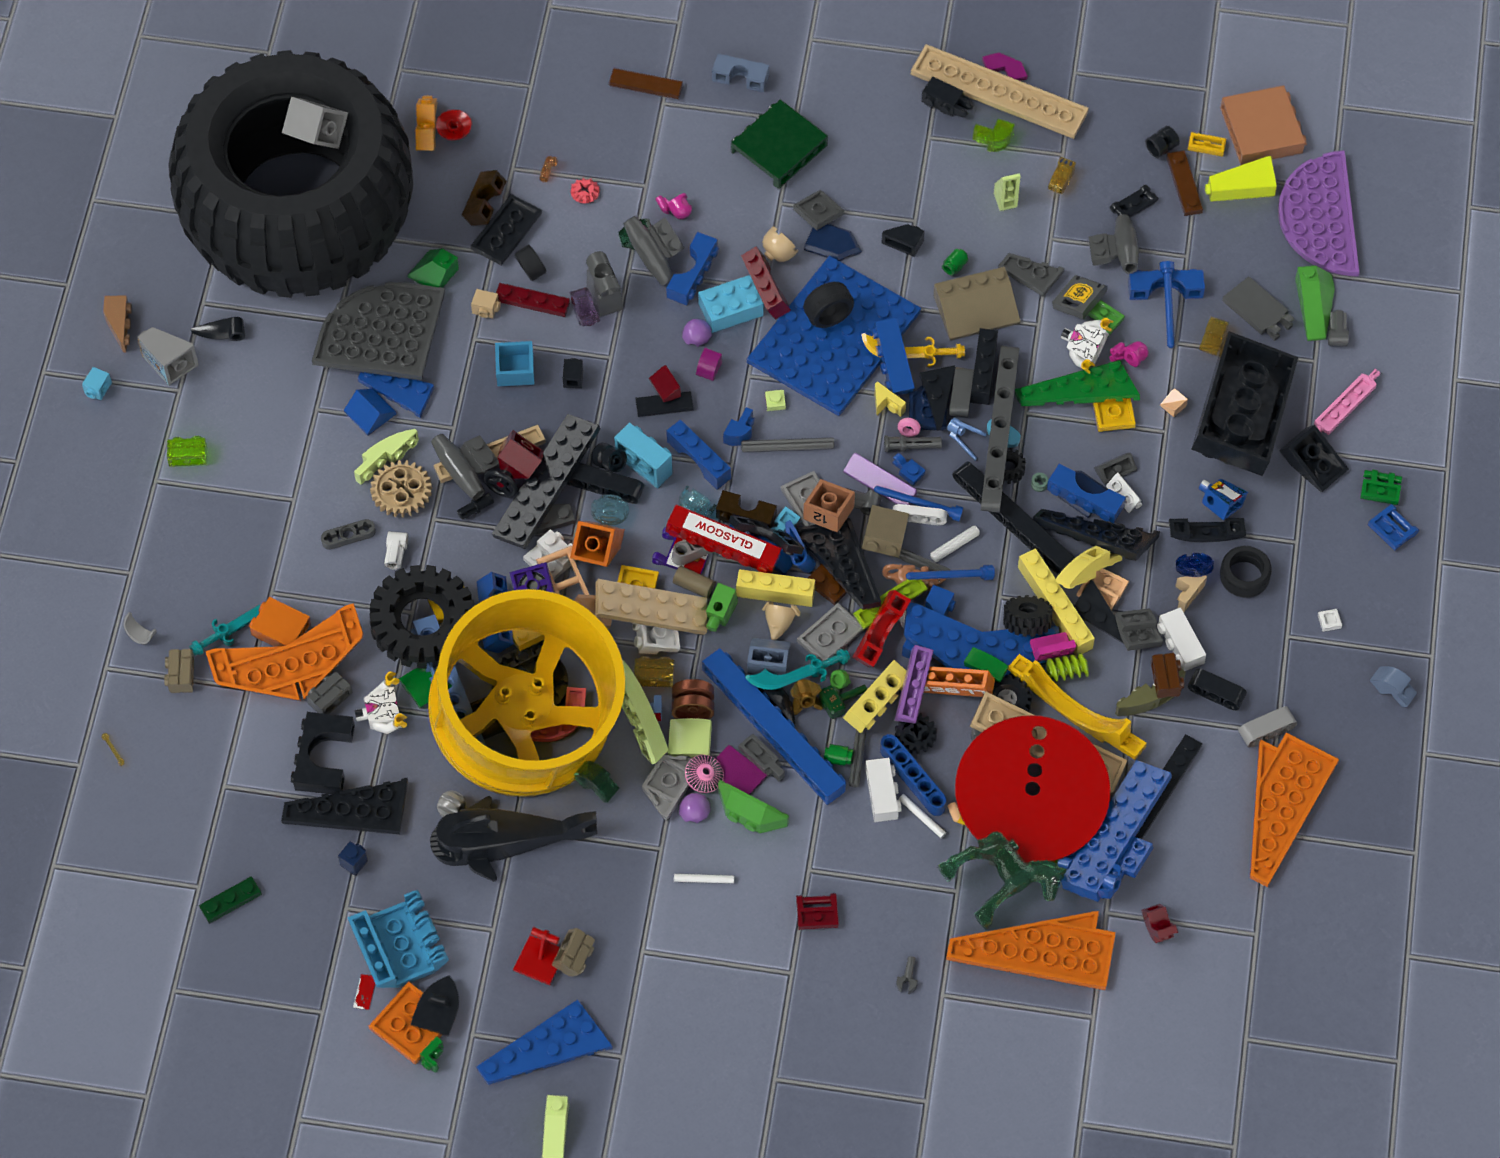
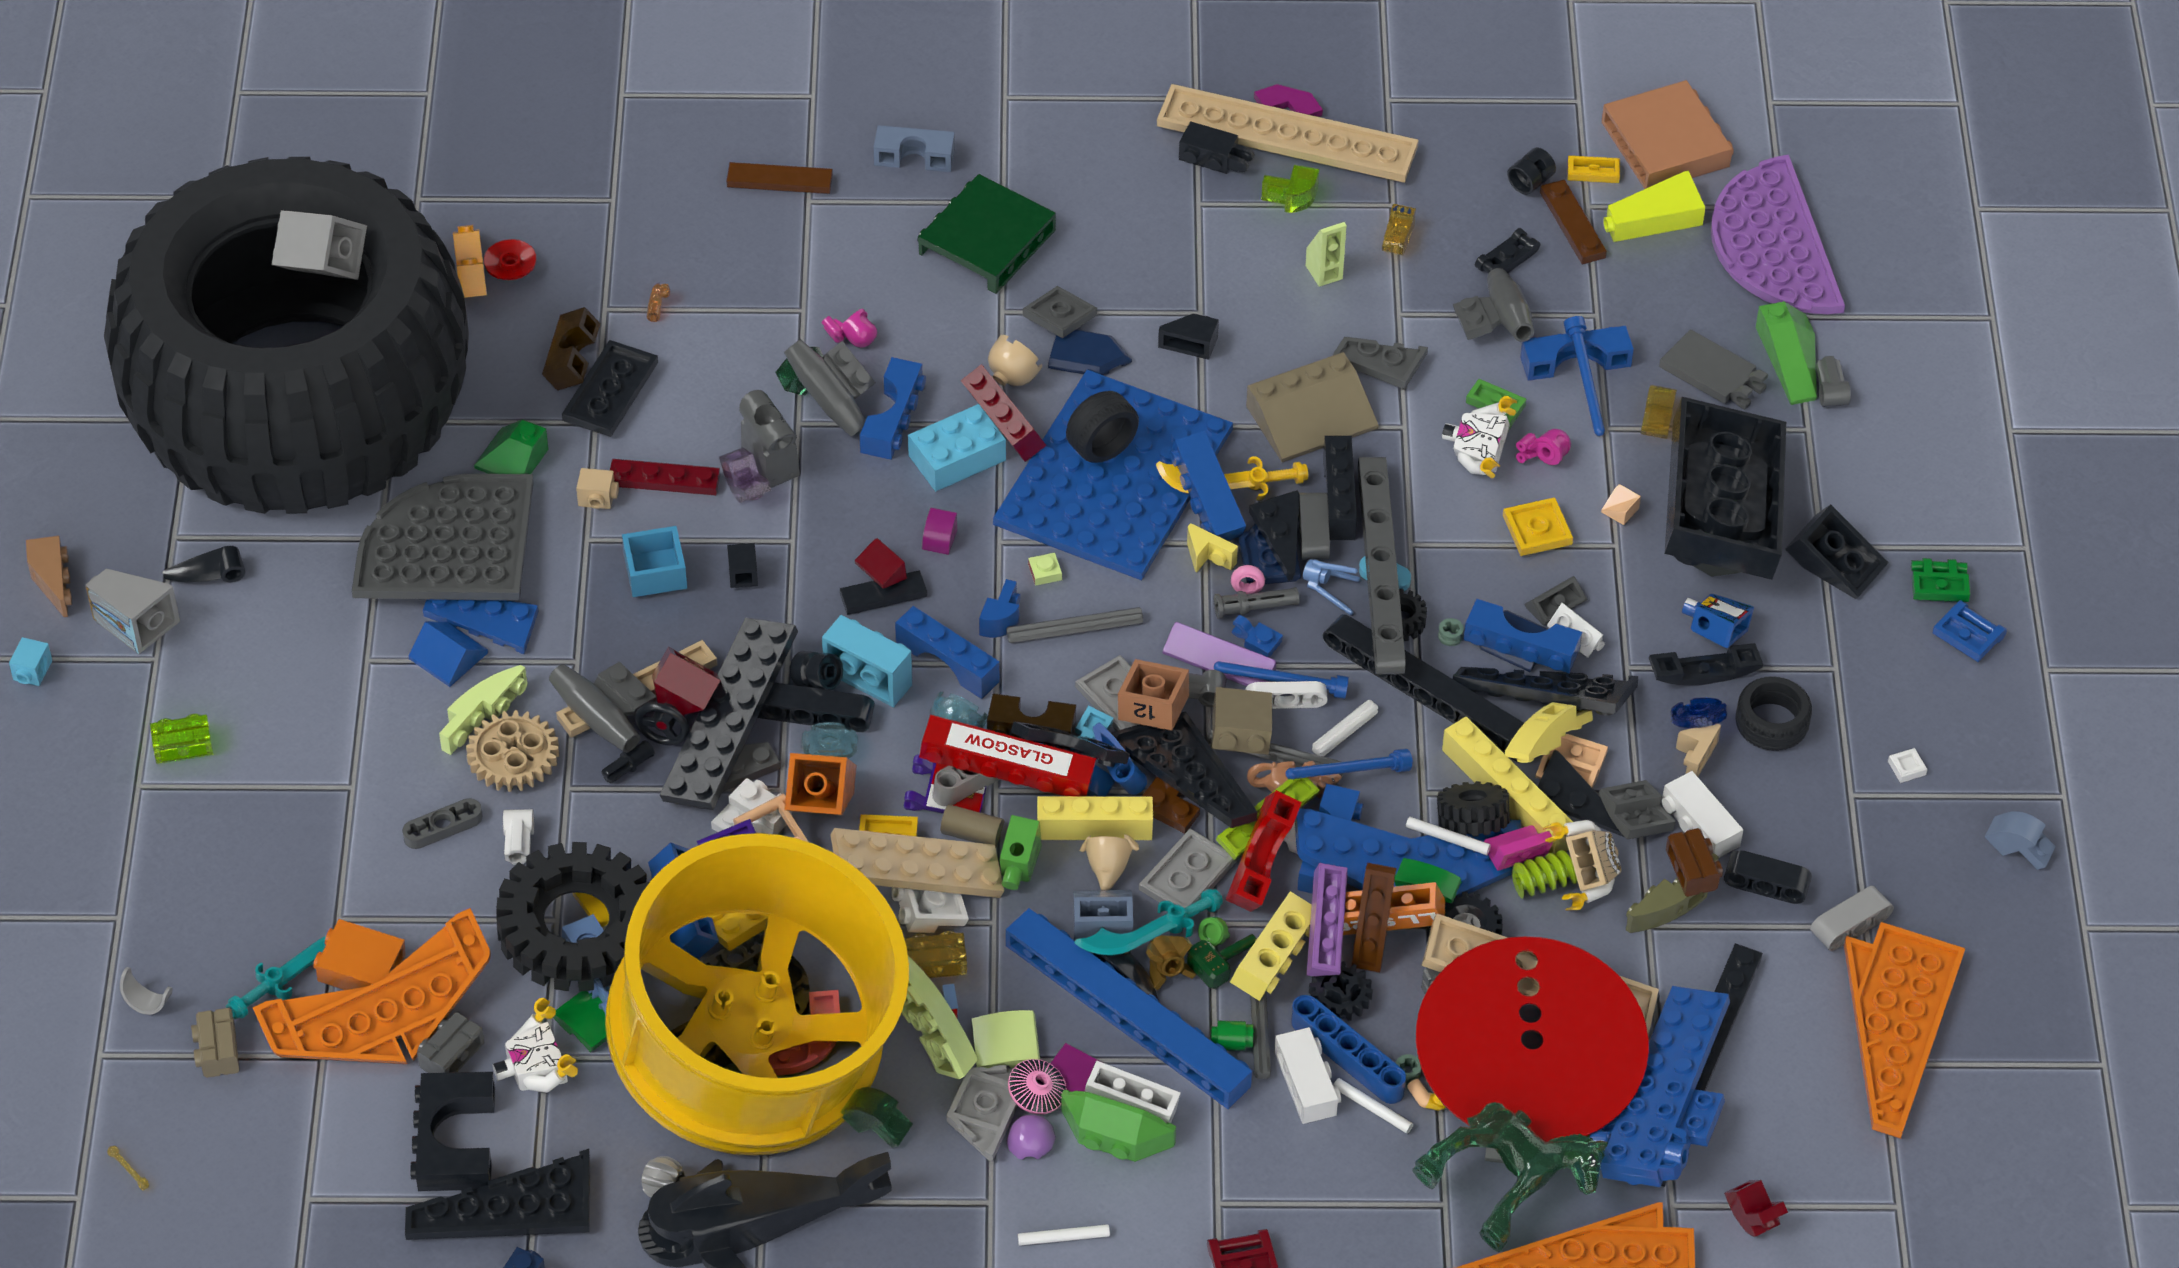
camera: 10 degrees left, 10 degrees down
(530, 262) = (654, 425): black tyre -> none
(583, 196) = (716, 333): coral gear -> none
(693, 699) = (1002, 982): copper wheel -> none
(696, 332) = (913, 491): medium lavender hair -> none
(762, 757) = (1118, 1052): dark grey hinge -> none
(763, 789) = (1133, 1091): none -> white brick
(944, 688) = (1373, 917): none -> reddish brown plate
(949, 787) = (1413, 1062): none -> sand green bush
(955, 262) = (1269, 357): green brick -> none
(1006, 633) = (1447, 835): none -> white bar
(1081, 292) = (1460, 375): dark grey container -> none
(1100, 662) = (1592, 857): none -> torso
(1103, 383) = (1505, 495): green wing -> none
(1113, 731) = (1629, 950): yellow slope -> none
(1346, 402) = (1867, 474): bright pink plate -> none

